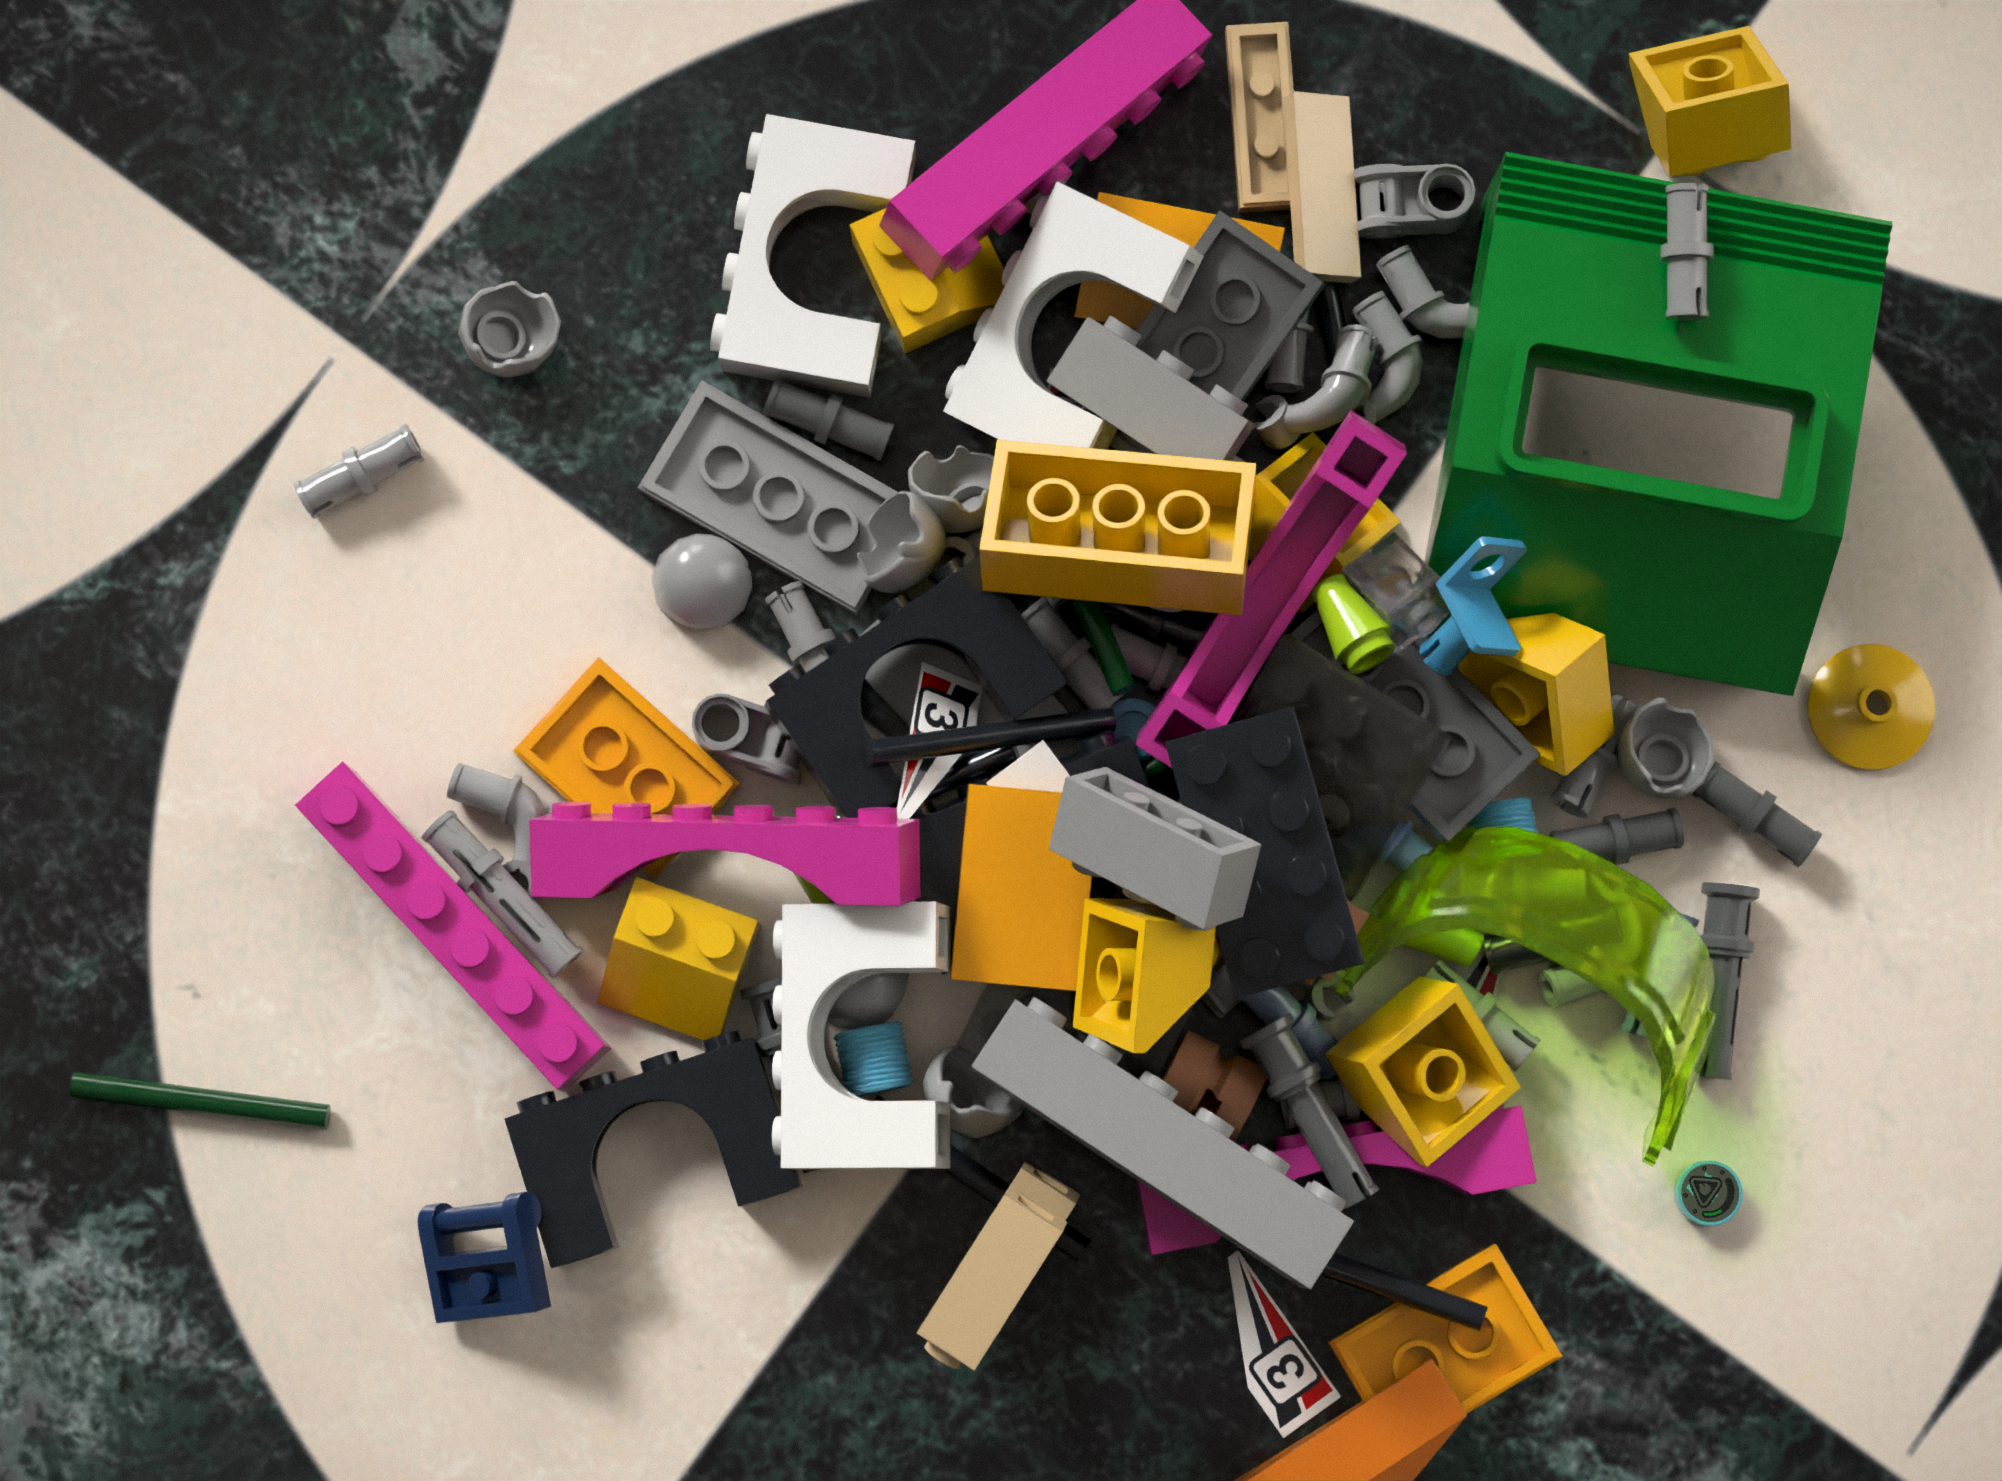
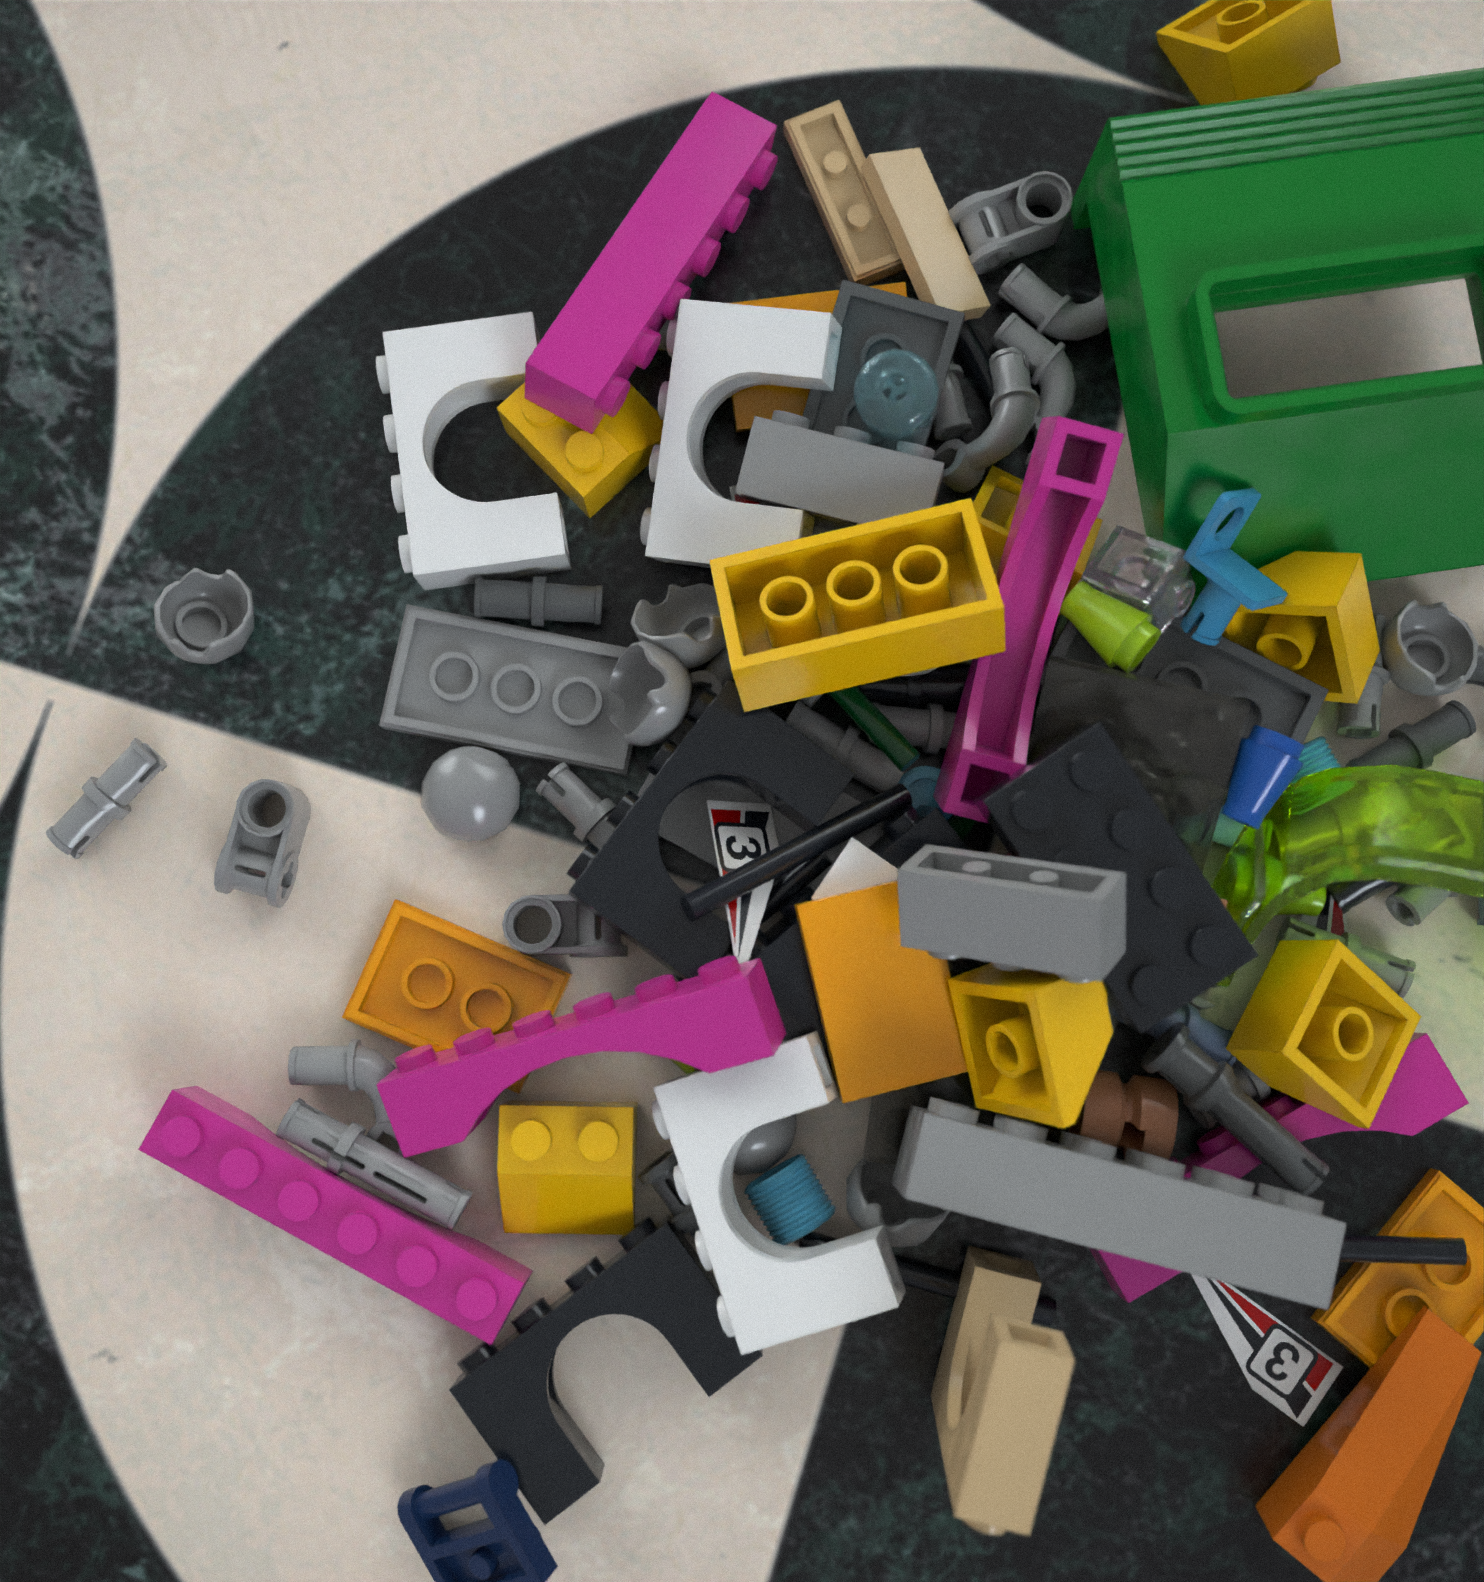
camera: 20 degrees left, 0 degrees up
(200, 1100) = (146, 1465): dark green bar -> none
(493, 567) = (263, 847): none -> light grey piece
(1249, 348) = (890, 417): none -> clear light blue head
(1439, 809) = (1260, 775): none -> blue cone
(1686, 252) = (1324, 149): light grey pin -> none

